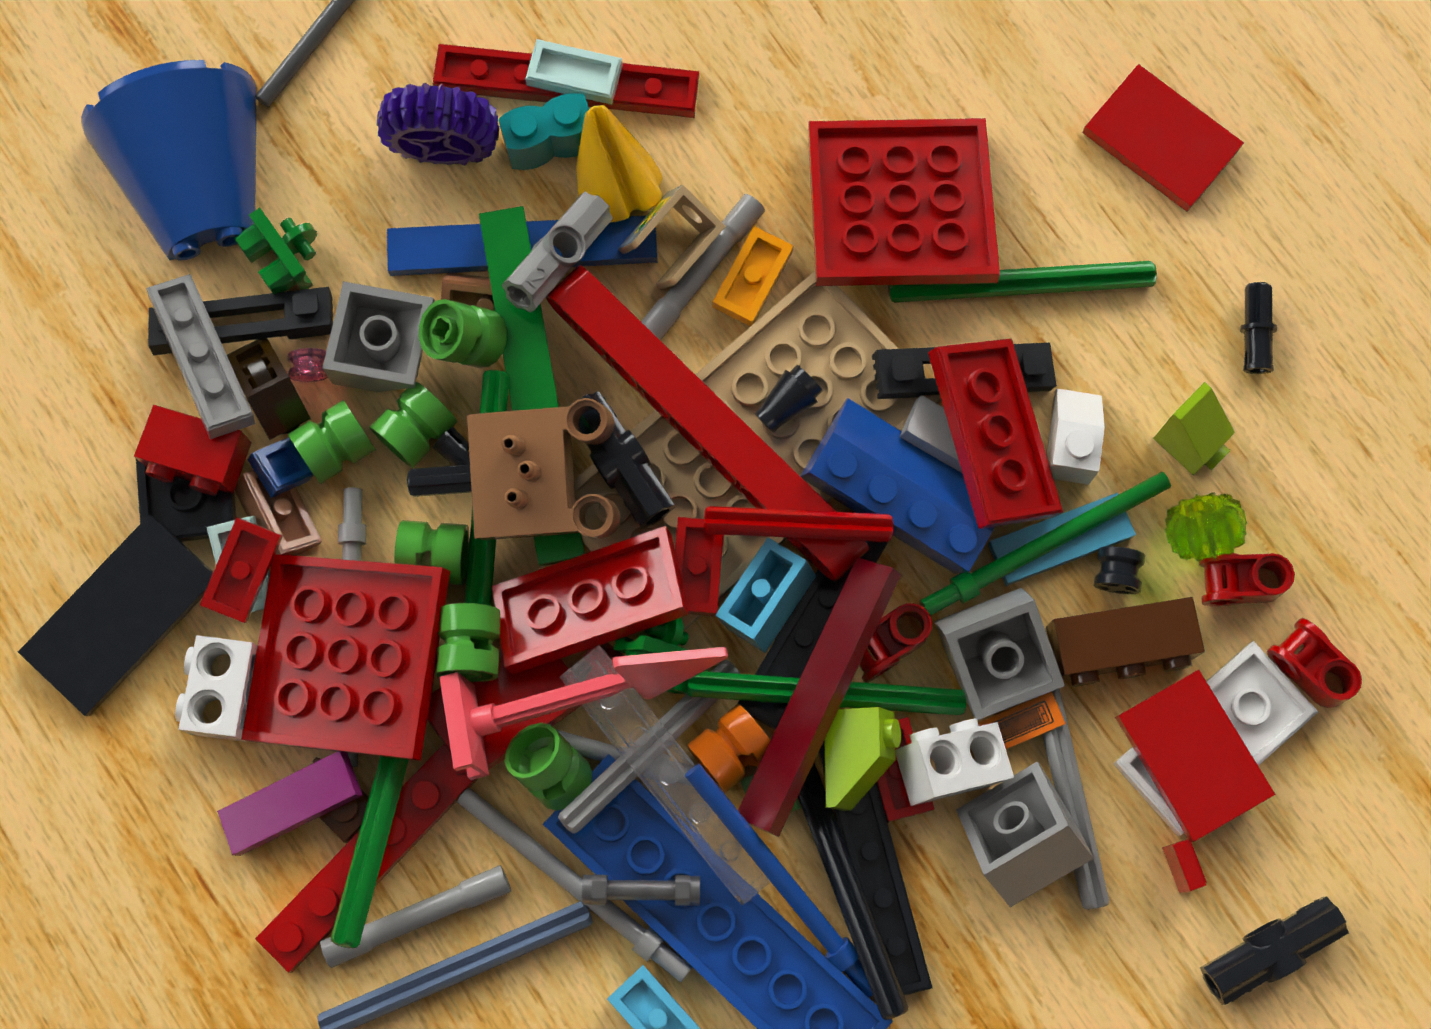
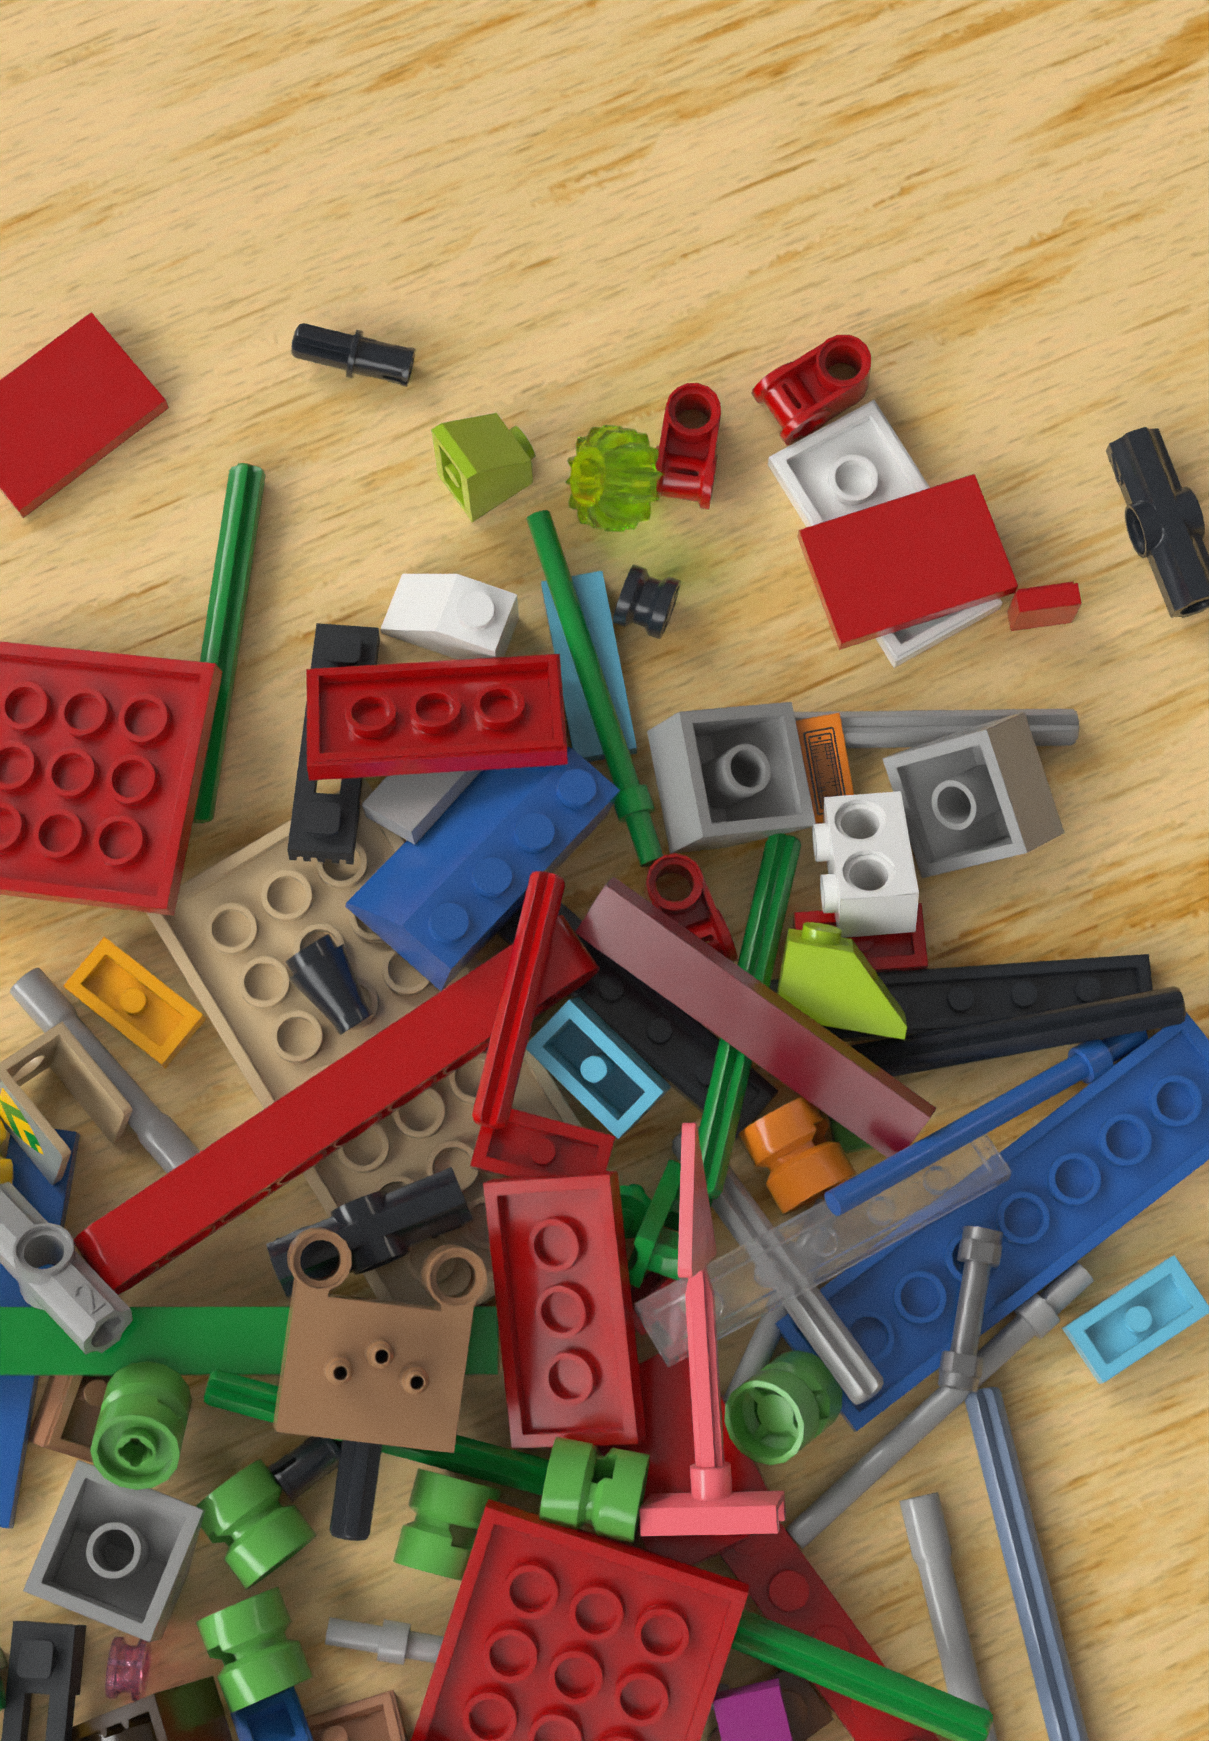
camera: 80 degrees left, 0 degrees up
(1126, 640) = (743, 611): reddish brown brick -> none

